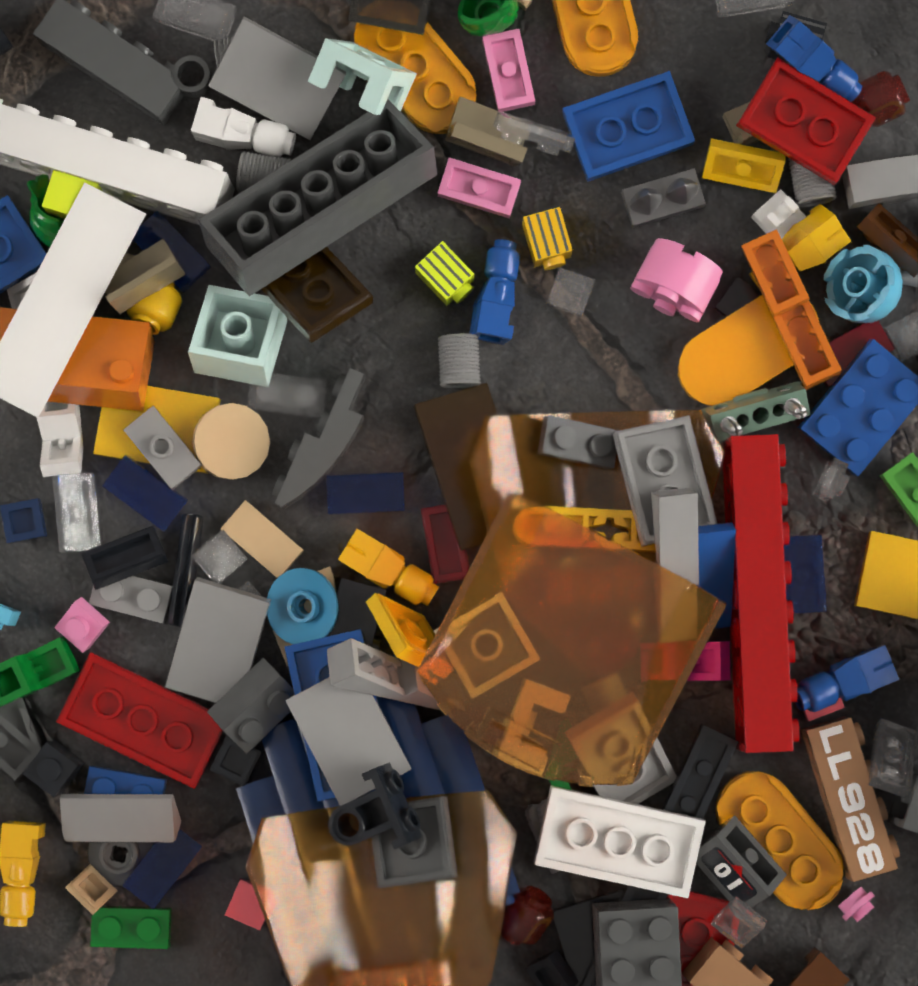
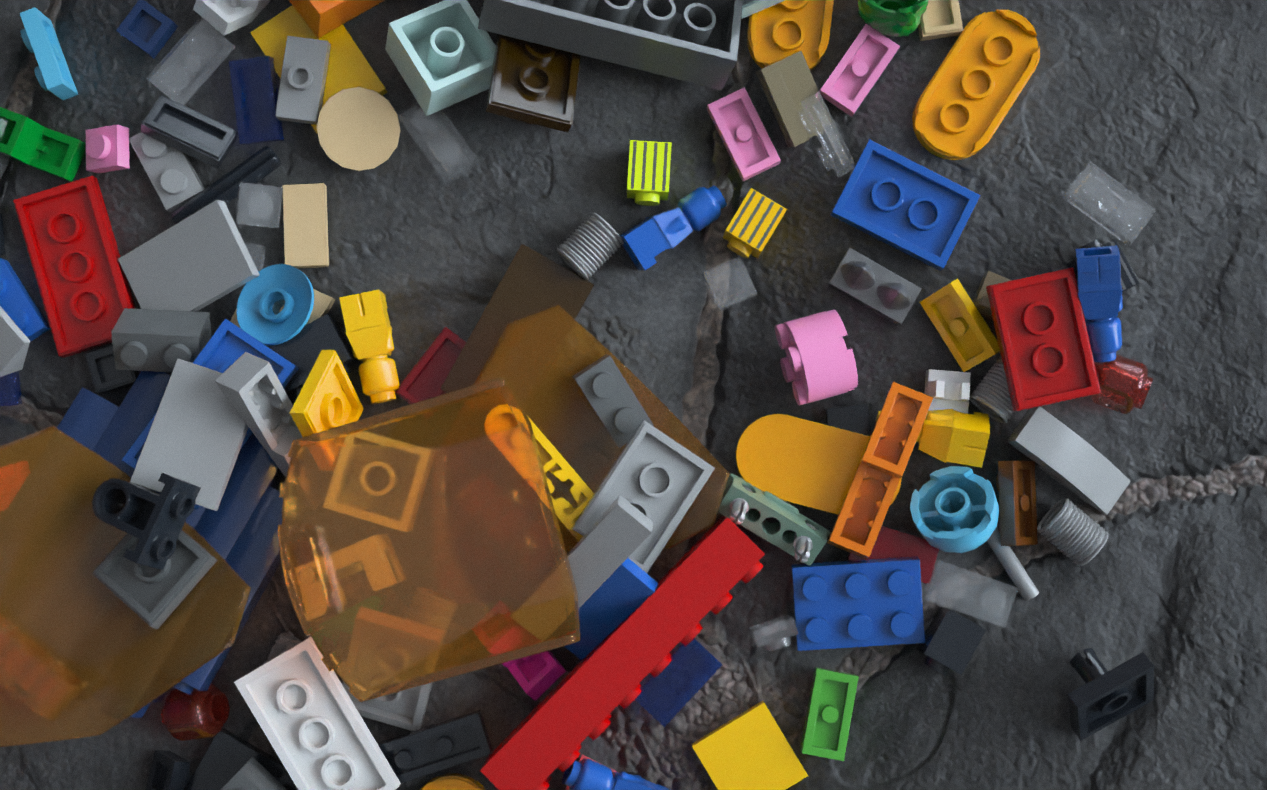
camera: 45 degrees right, 0 degrees up
(317, 457) = (409, 208): dark grey slope -> none
(365, 493) = (416, 272): clear blue plate -> none

